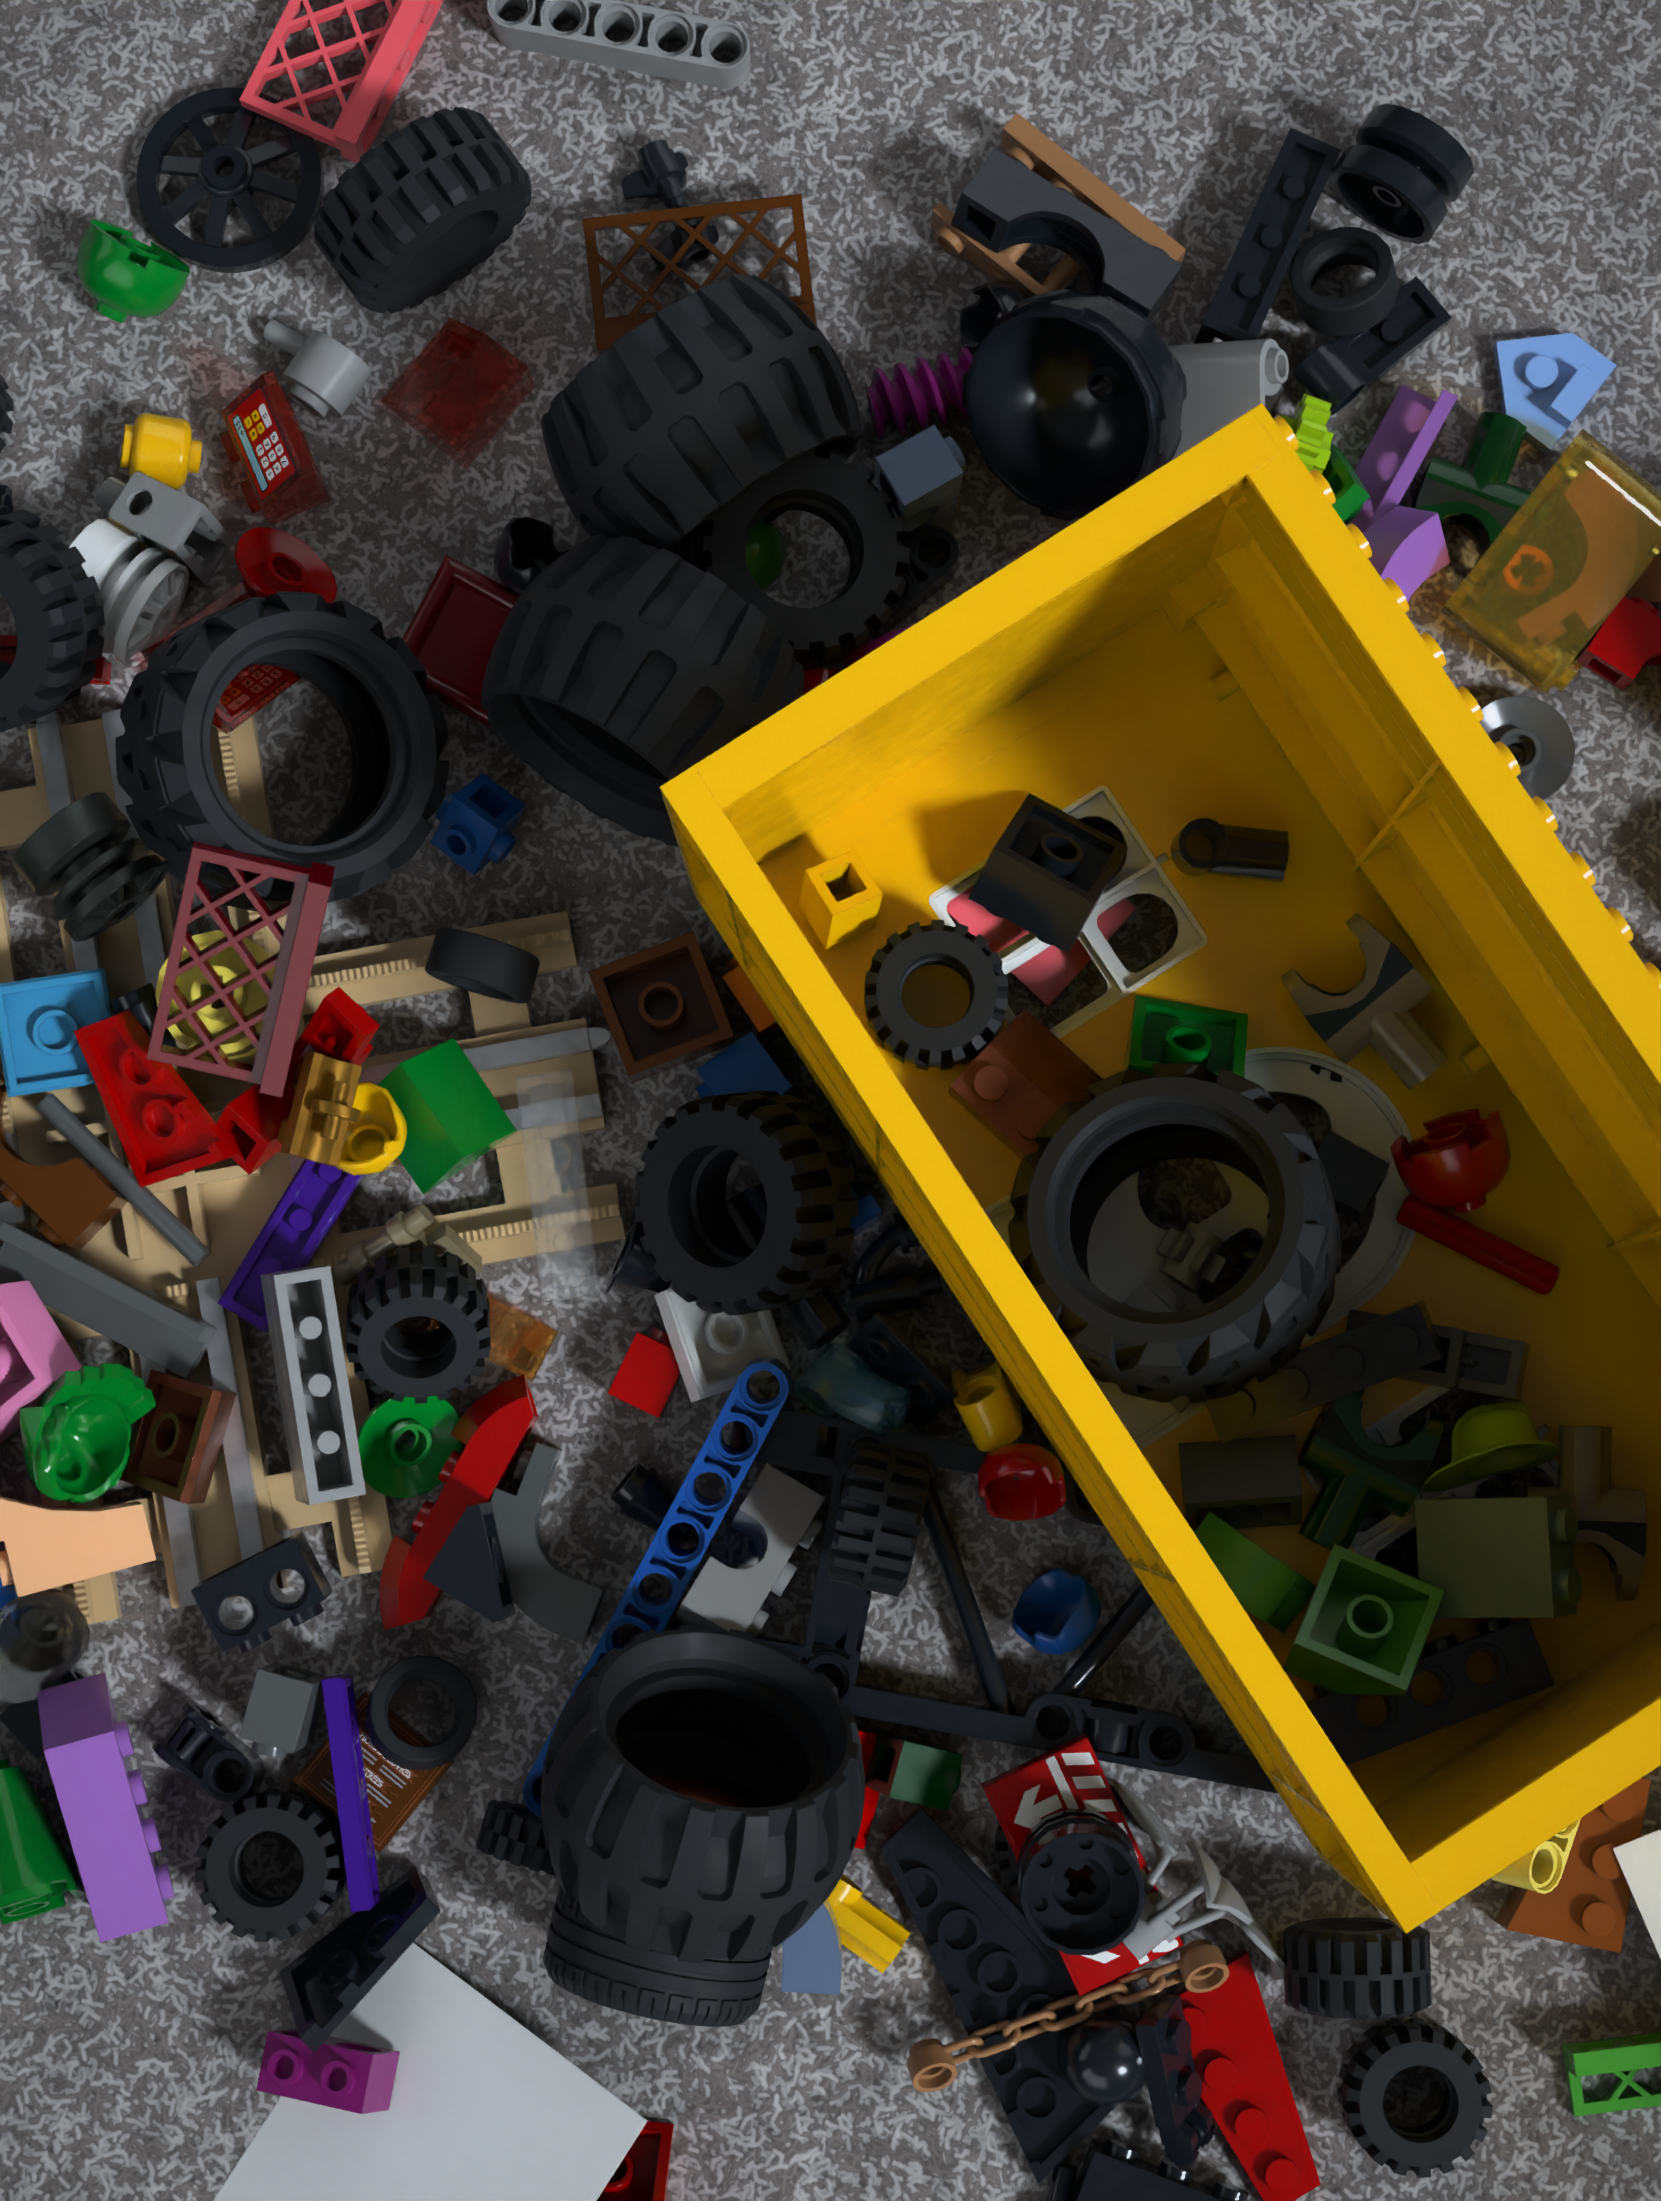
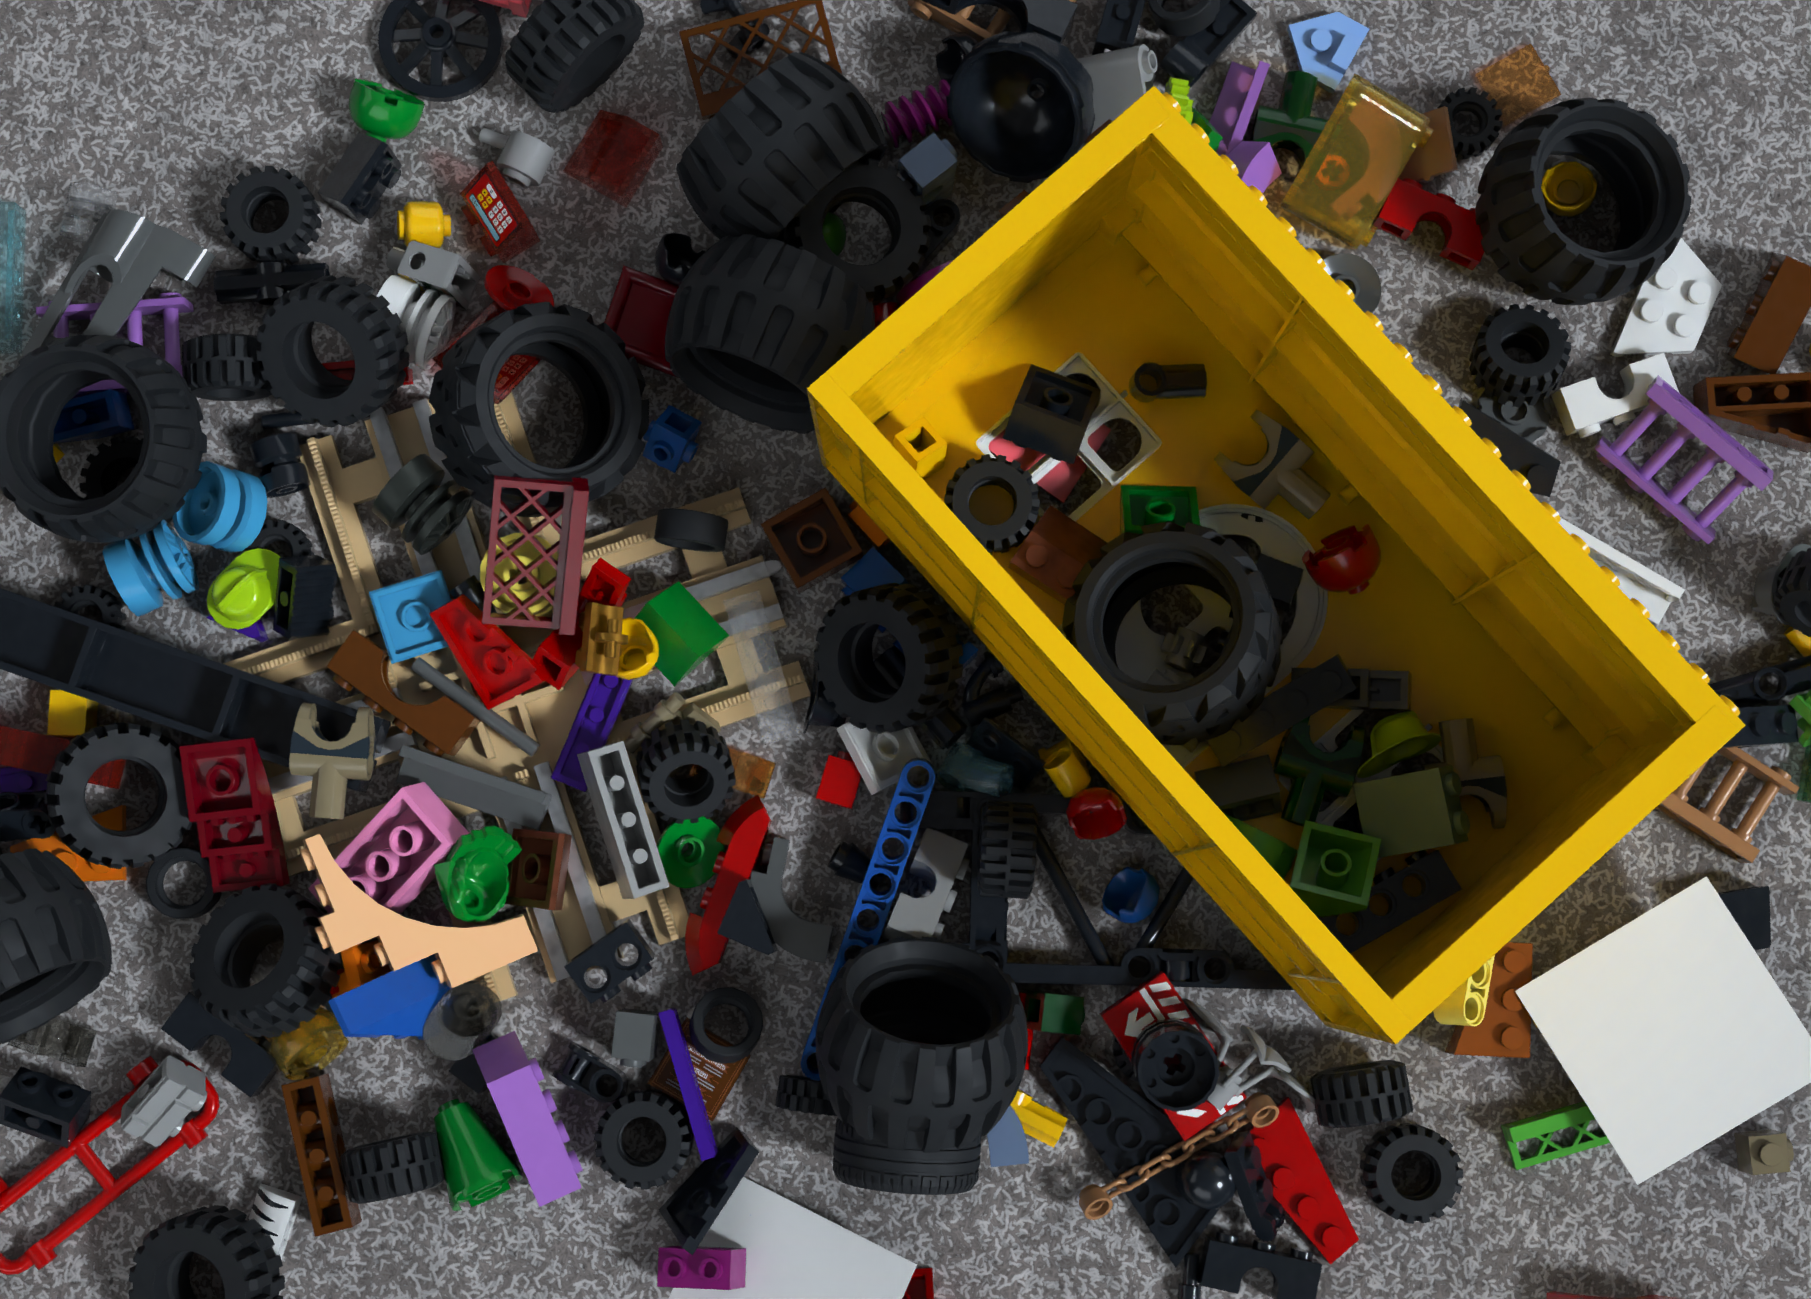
camera: 15 degrees left, 0 degrees up
(80, 368) = (361, 178): none -> black slope
(1478, 1245) = (1368, 613): red axle -> none

